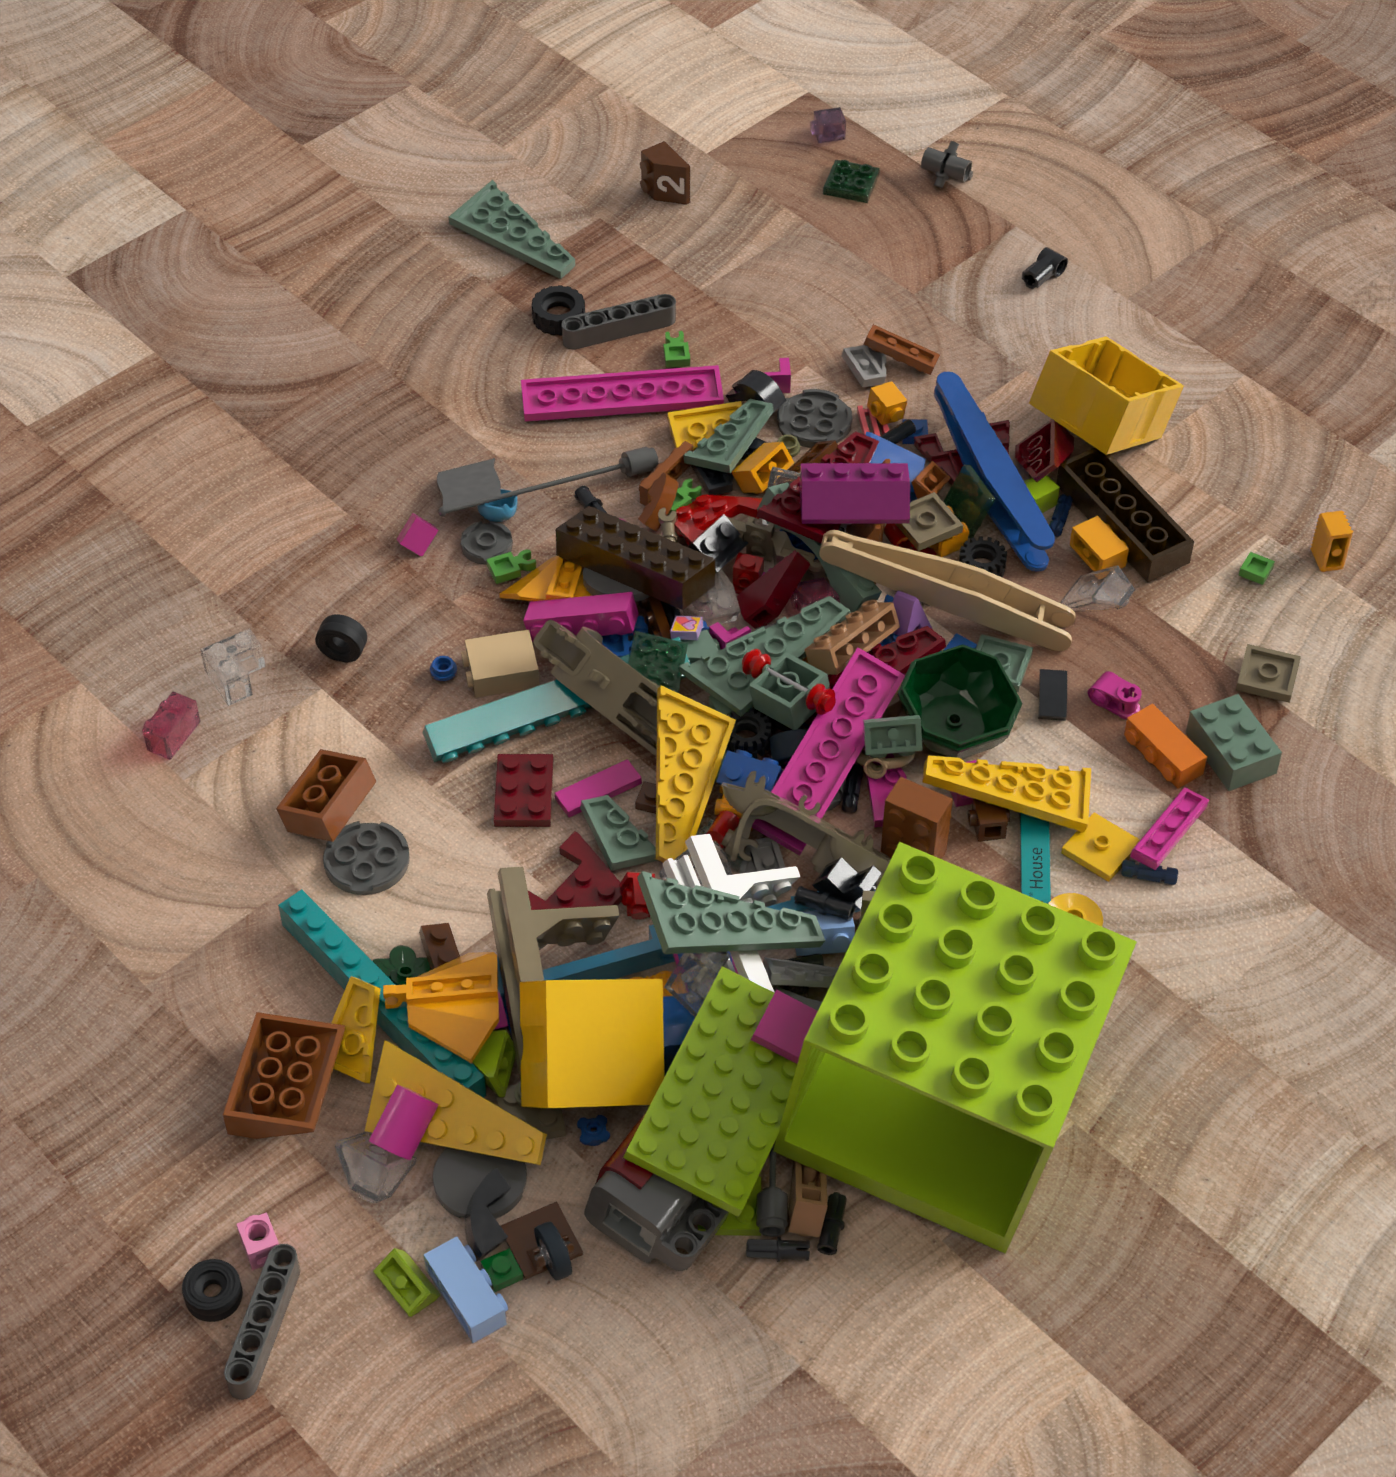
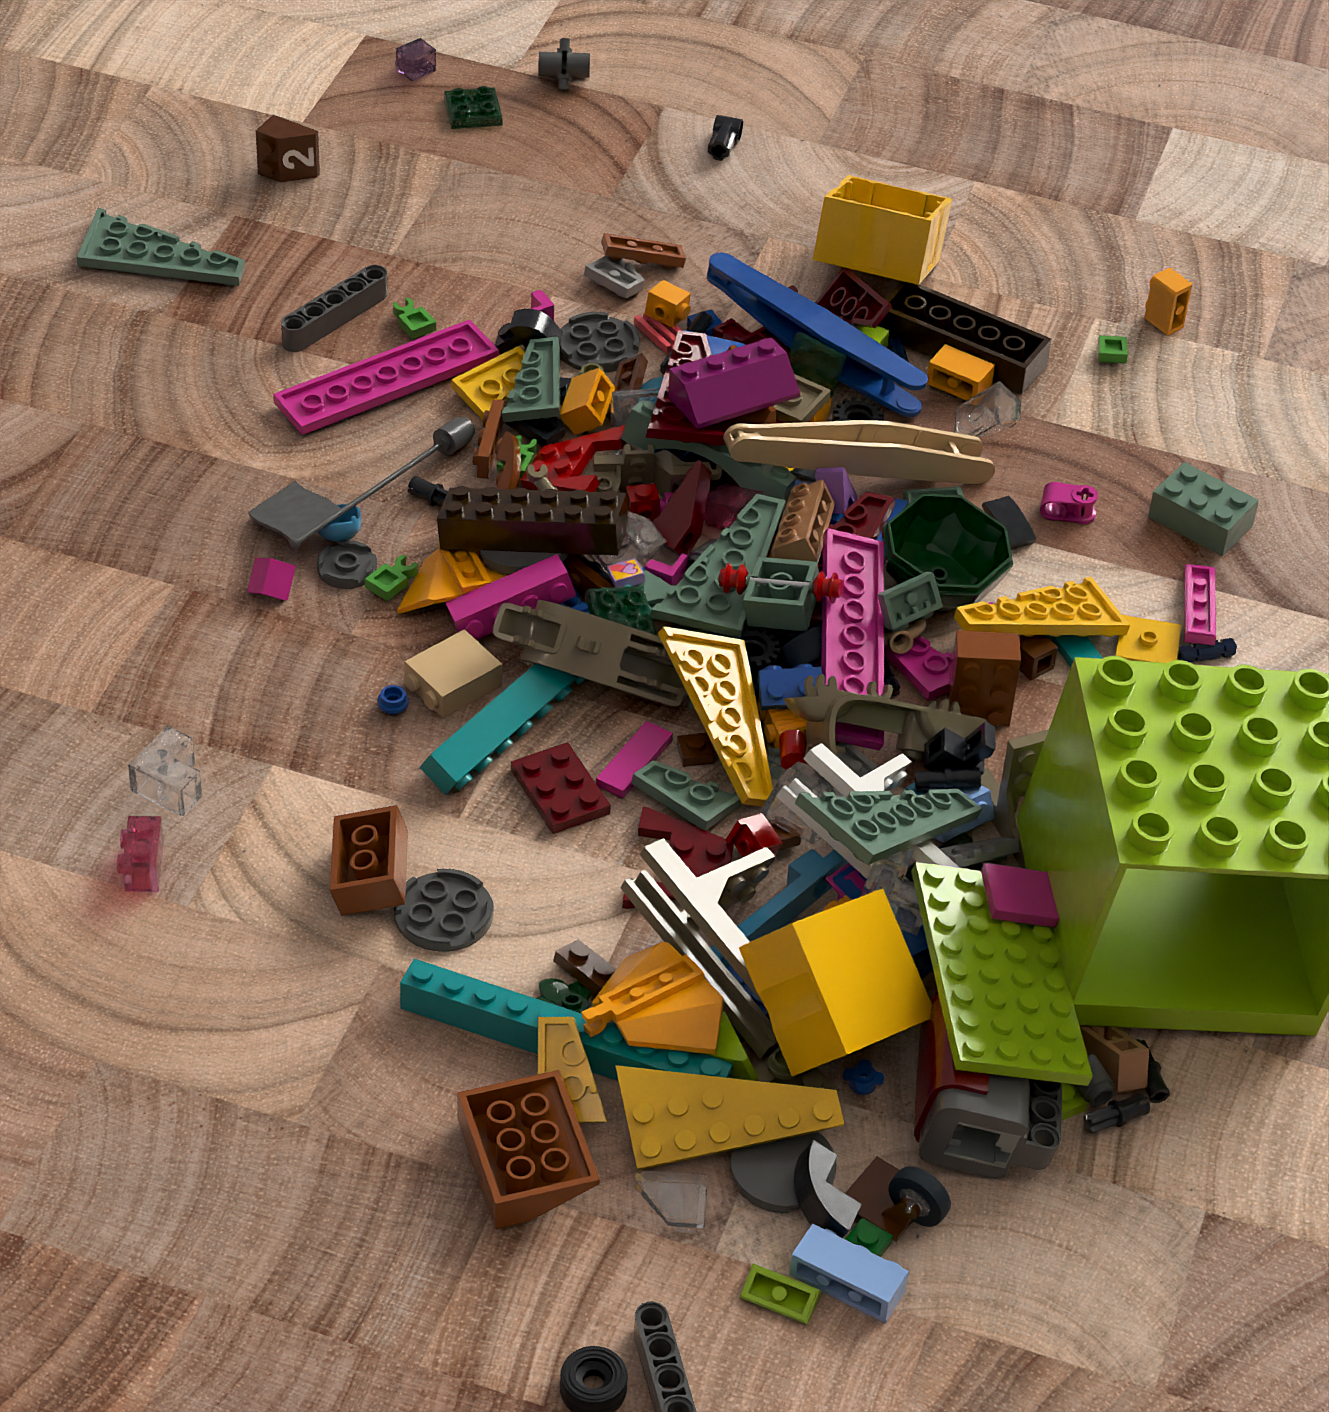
camera: 30 degrees left, 5 degrees down
(254, 1227) = (610, 1327): bright pink brick -> none
(341, 638) = (268, 690): black tyre -> none
(403, 1122) = (687, 1137): dark pink brick -> none
(553, 297) = (254, 302): black tyre -> none
(720, 542) = (605, 475): black plate -> none
(1165, 746) = (1144, 533): orange brick -> none
(1268, 673) = (1188, 438): dark tan plate -> none

